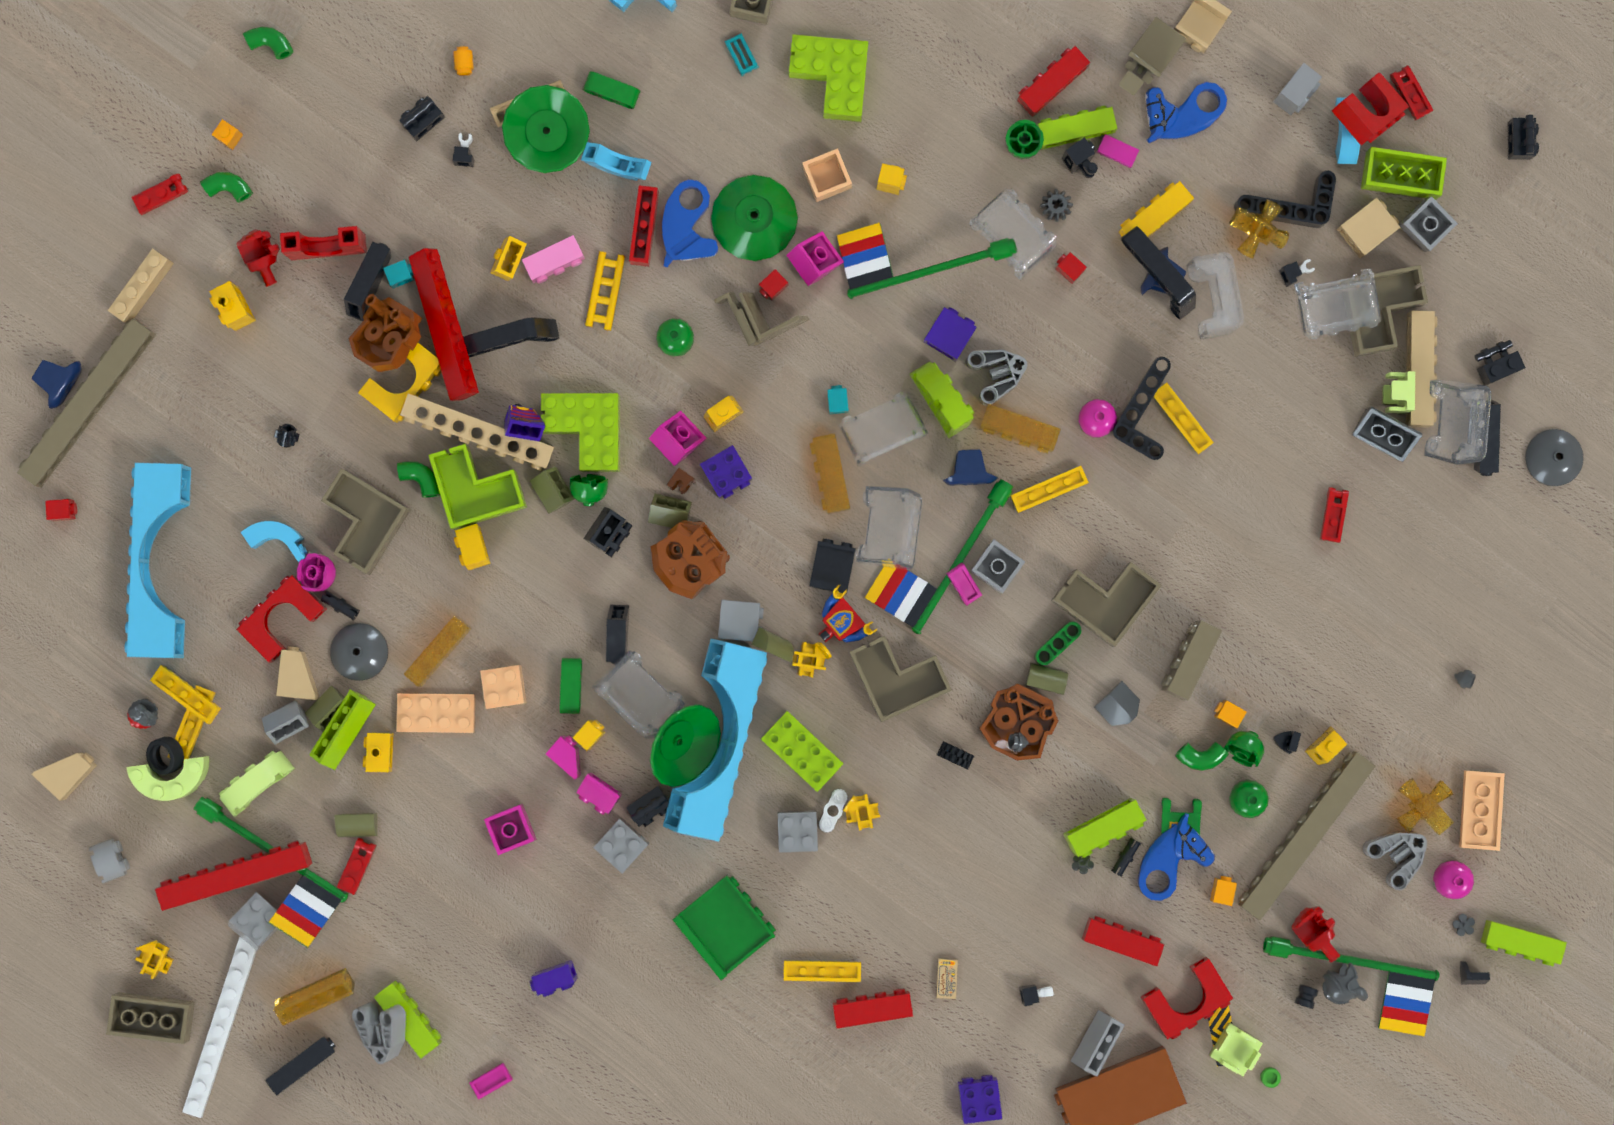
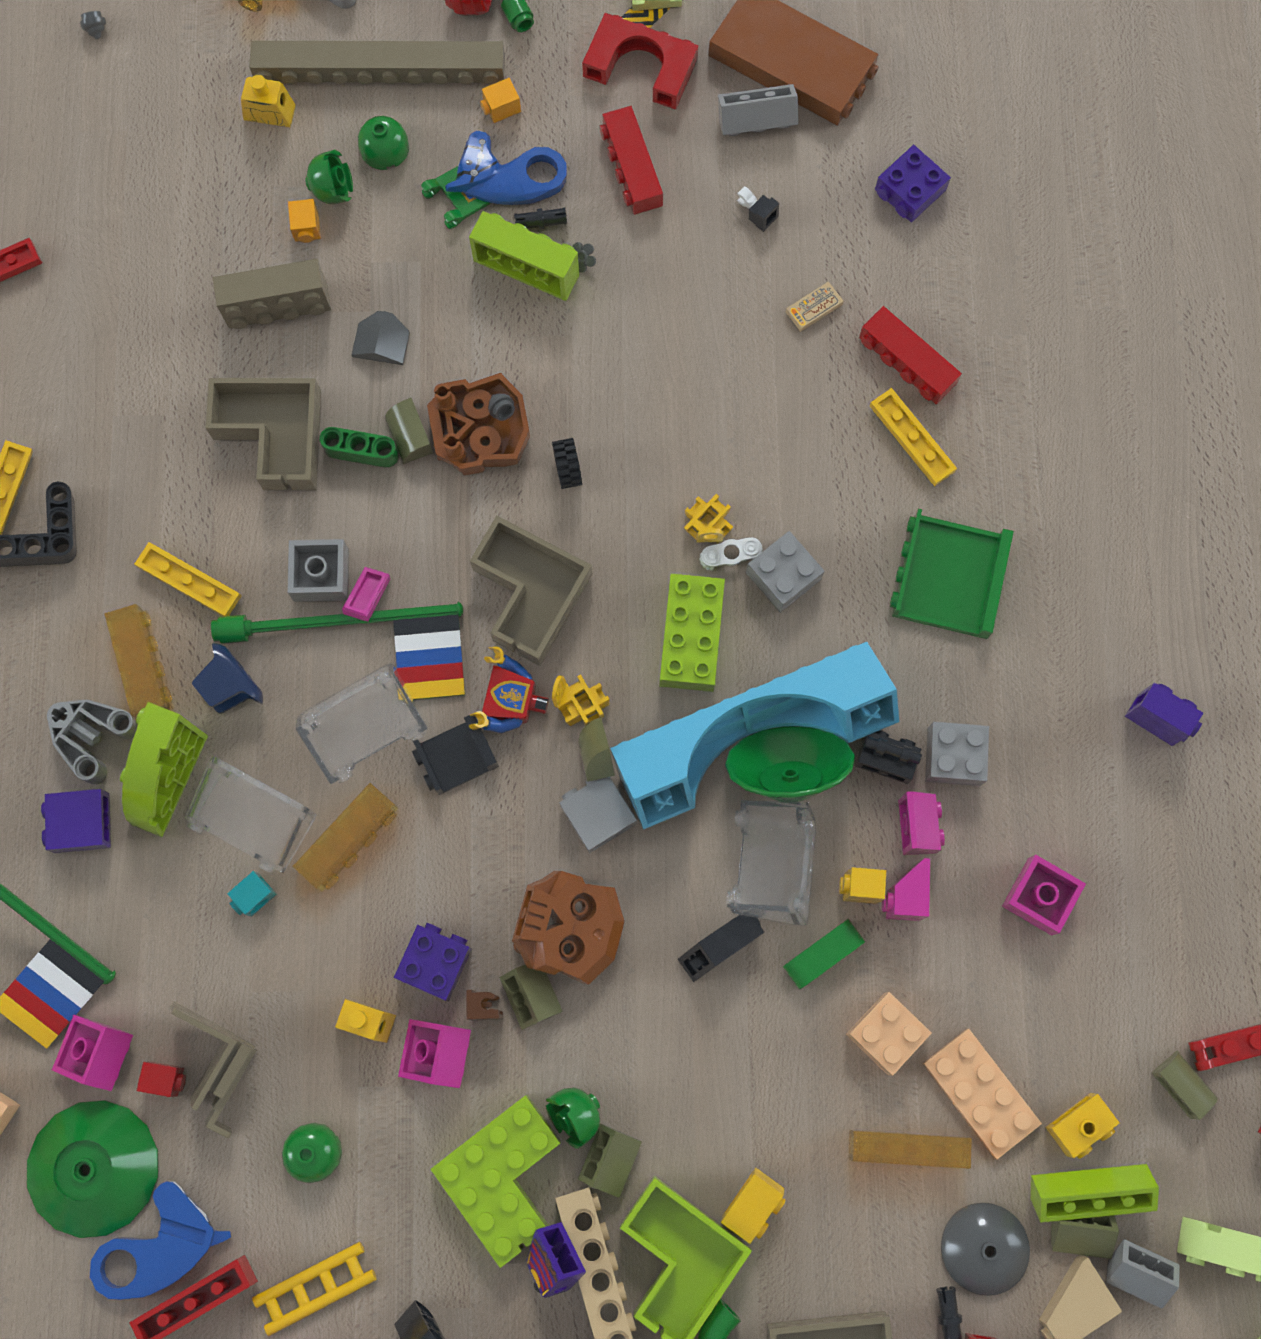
camera: 125 degrees left, 10 degrees down
(605, 529) = (609, 1050): black brick -> none
(1097, 418) = (65, 586): dark pink cylinder -> none
(1201, 760) = (376, 213): green cylinder -> none
(1287, 741) = (289, 144): black tile -> none

